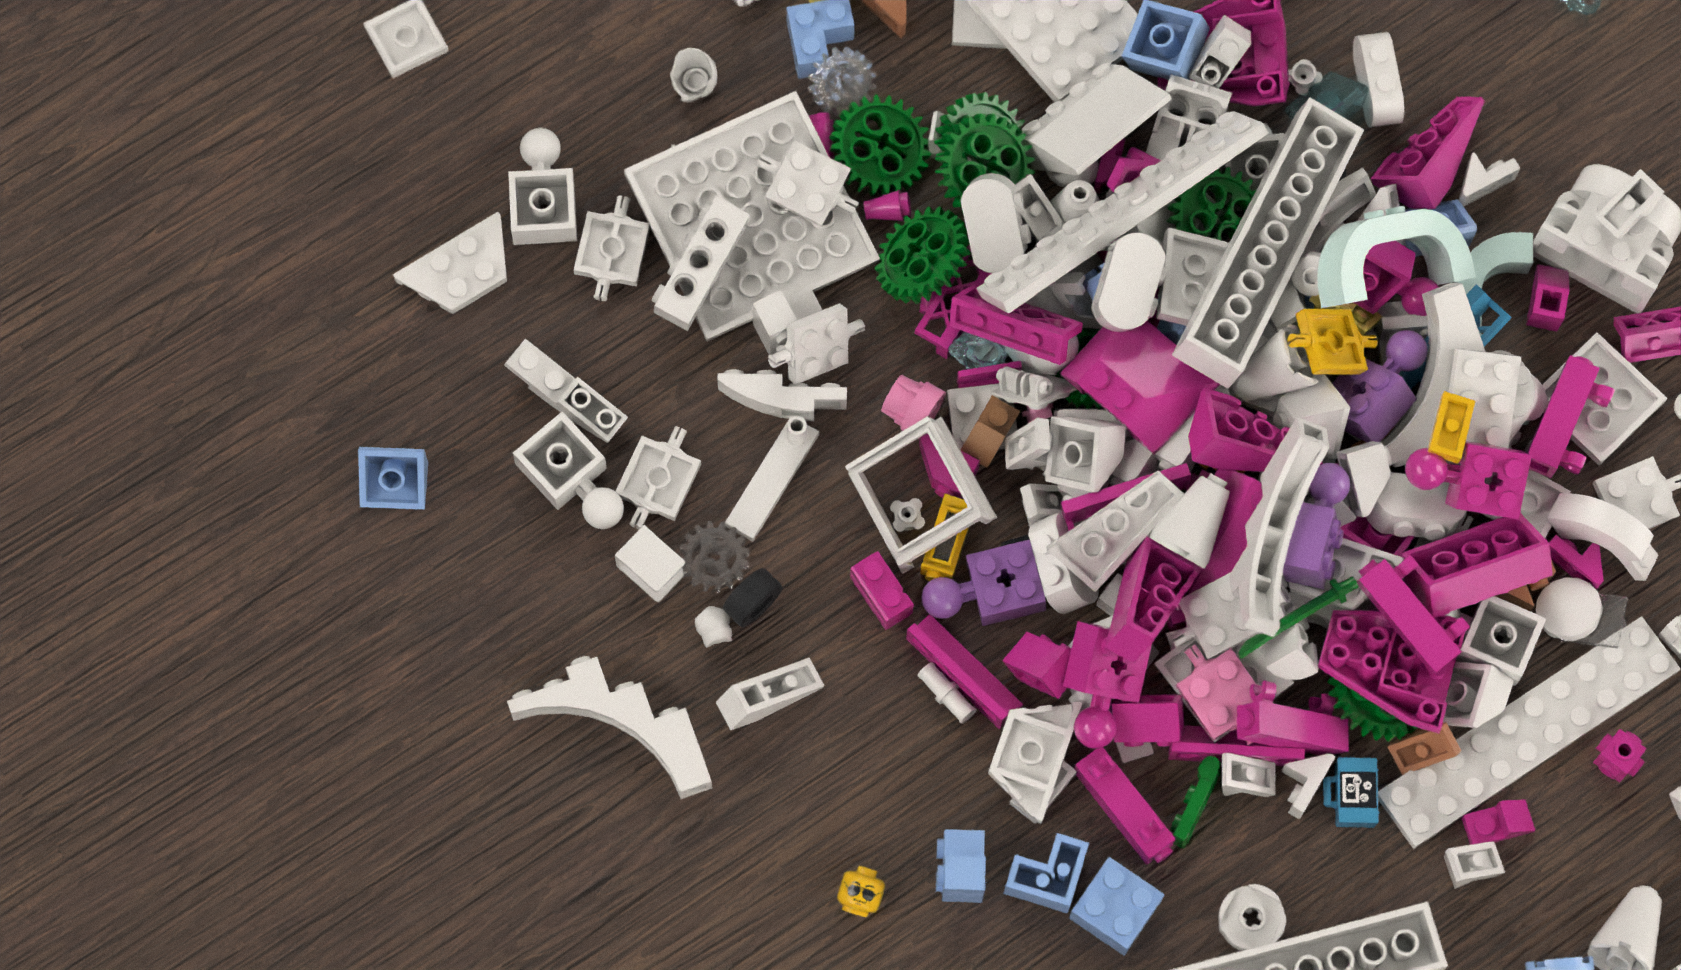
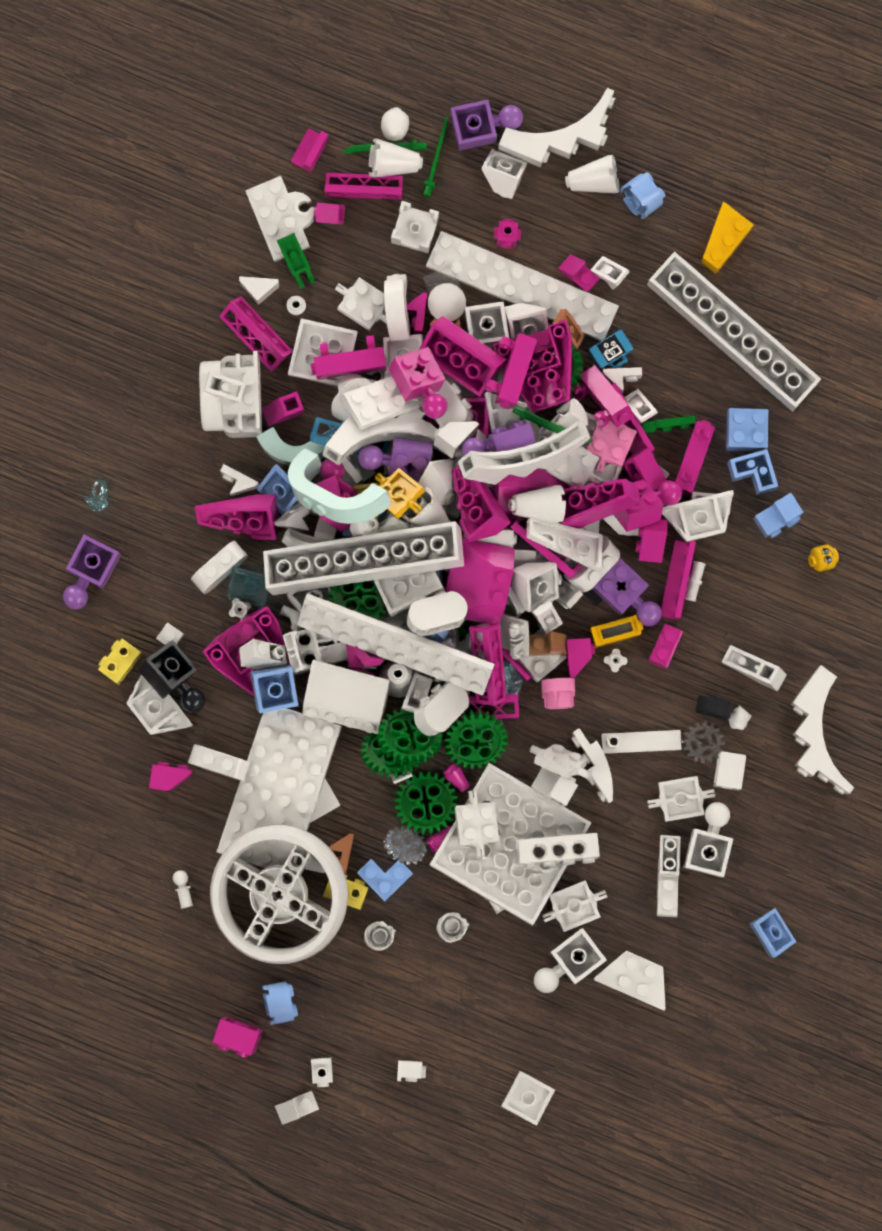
camera: 125 degrees left, 10 degrees up
(978, 505) = (583, 643): white piece -> none
(1245, 899) = (715, 354): white plate -> none
(1451, 426) = (406, 405): yellow plate -> none

